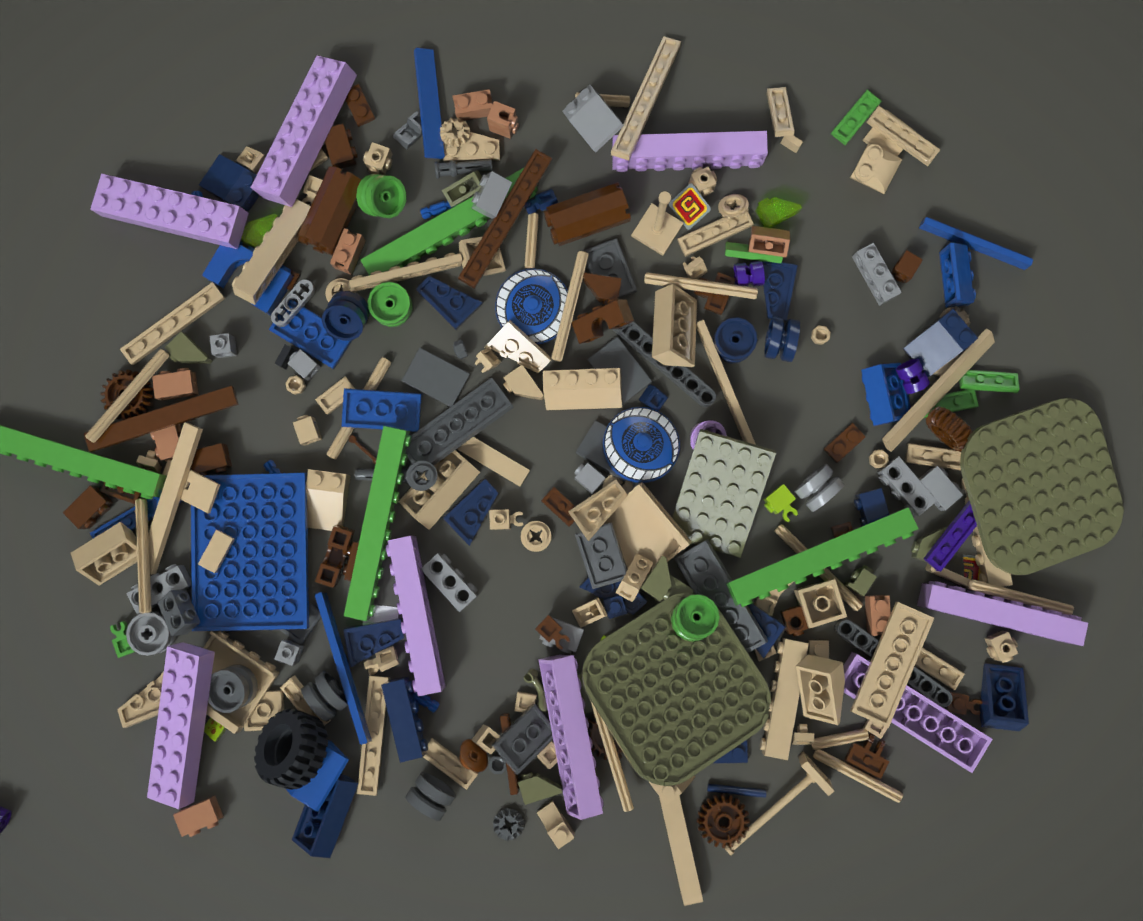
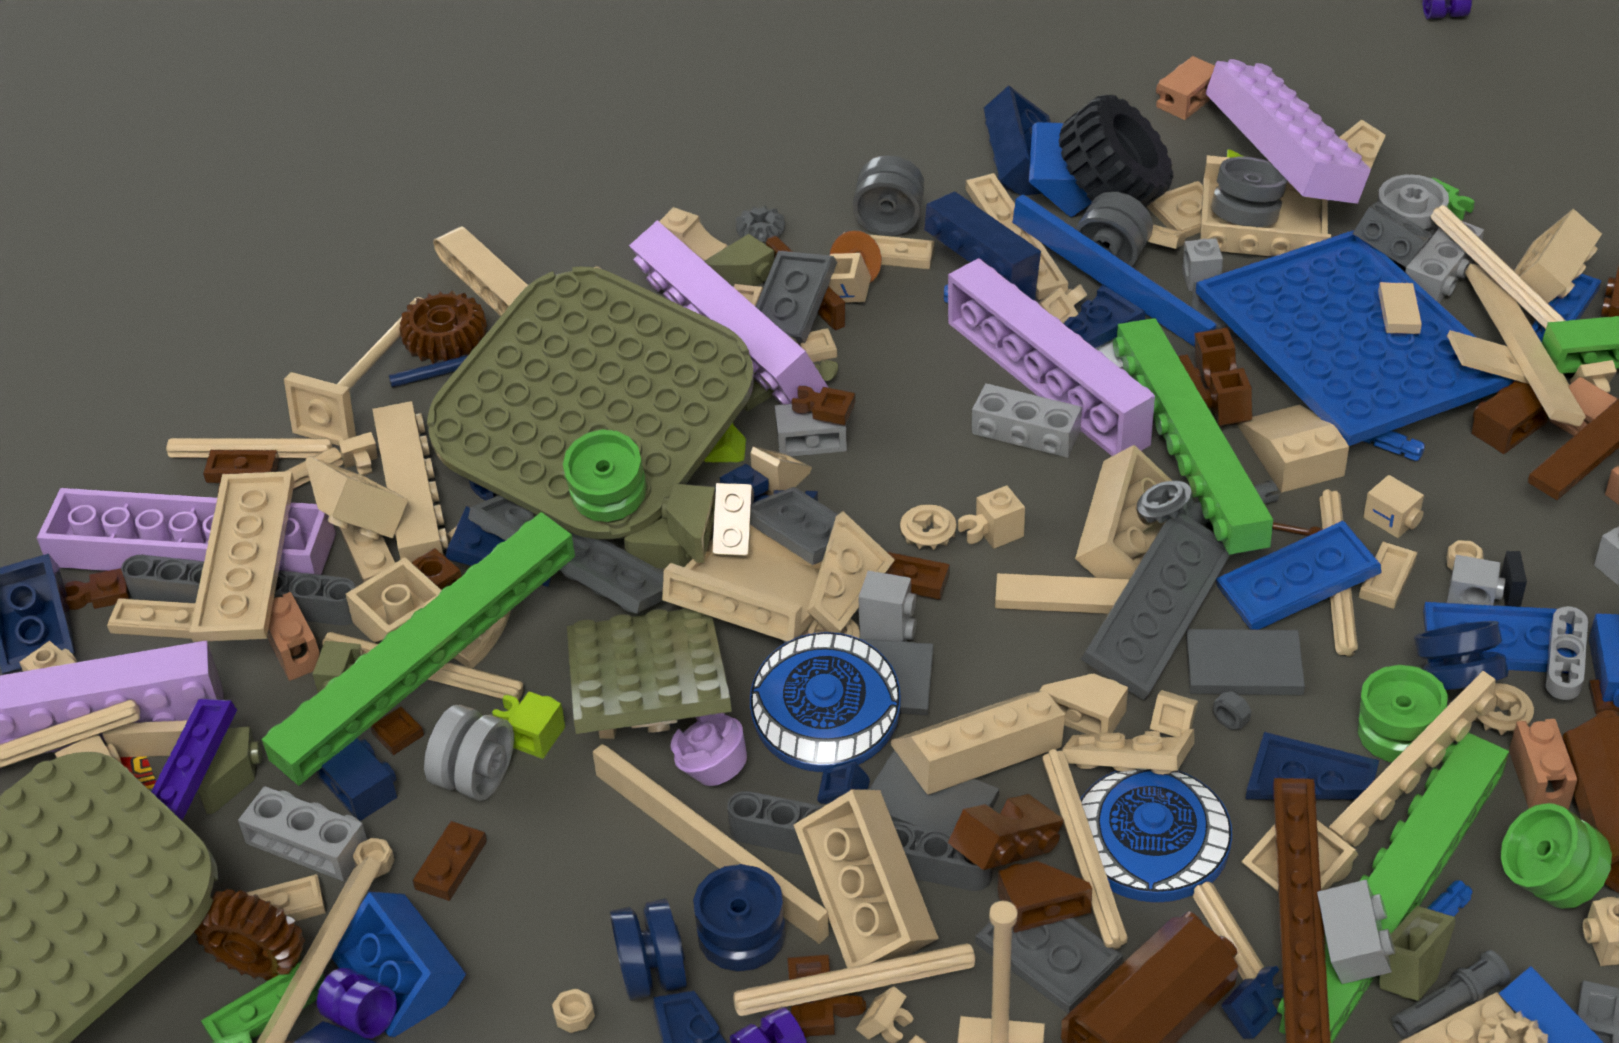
camera: 150 degrees right, 40 degrees down
(471, 511) = (1054, 515): dark blue wing -> none
(941, 487) = (244, 853): light grey brick -> none

